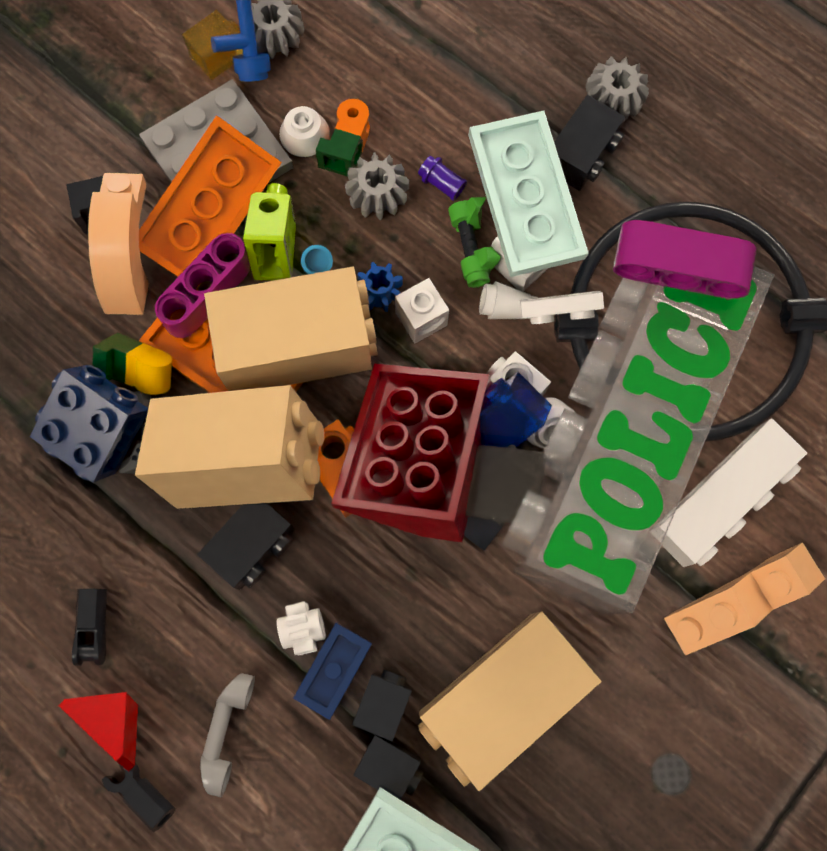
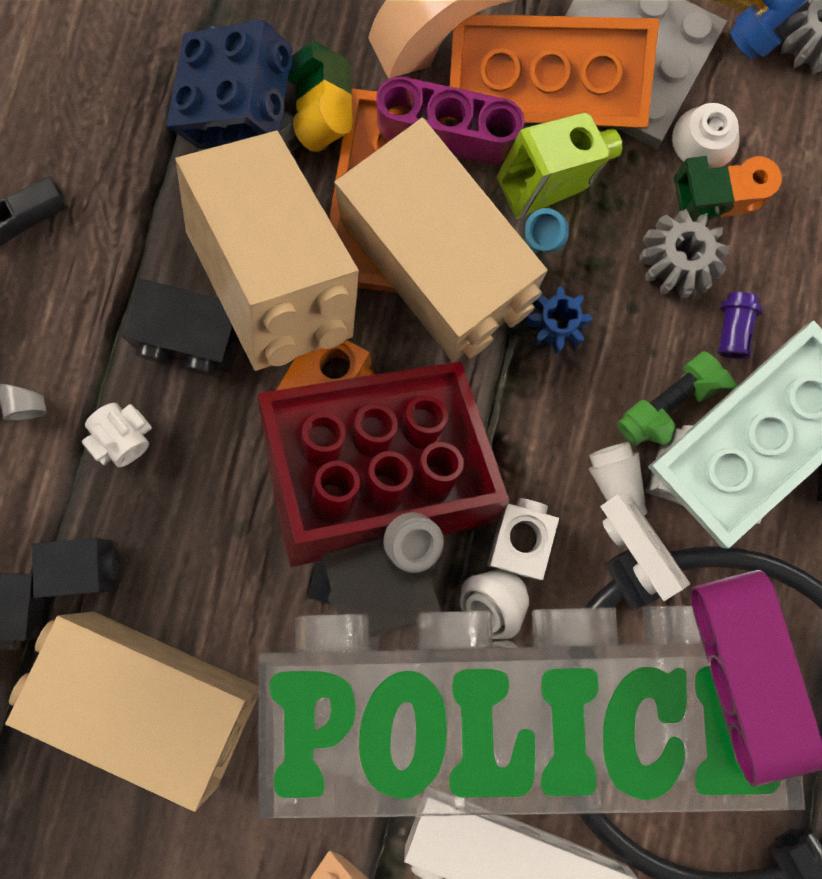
camera: 65 degrees right, 5 degrees up
(332, 671) = (89, 493): dark blue plate -> none
(421, 310) = (554, 383): white brick -> none
(489, 446) = (413, 542): none -> light grey tile
(512, 412) = (480, 552): clear blue slope -> none

